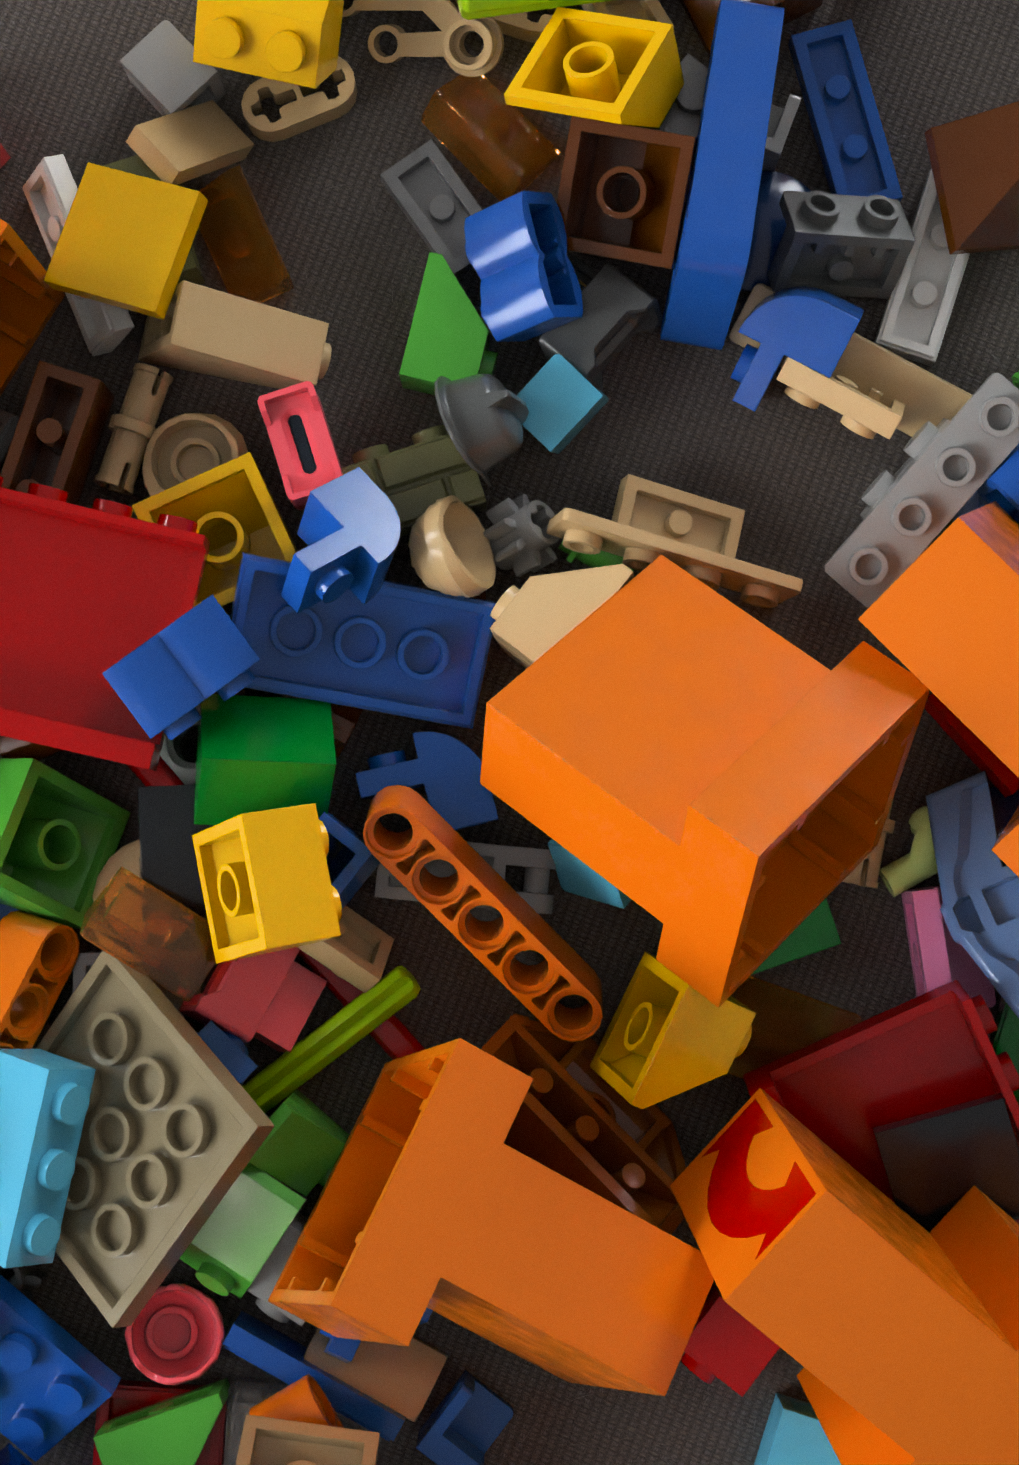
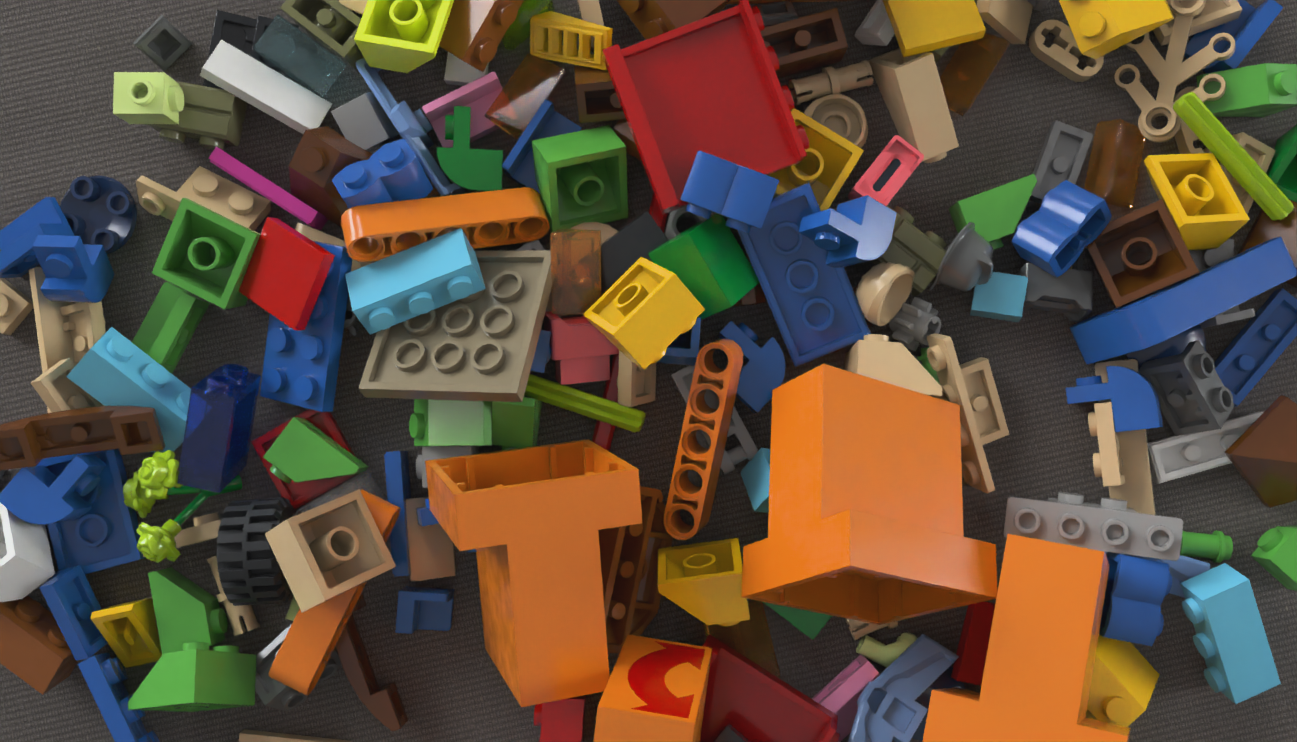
camera: 55 degrees right, 0 degrees up
(176, 1335) = (373, 424): coral hair -> none

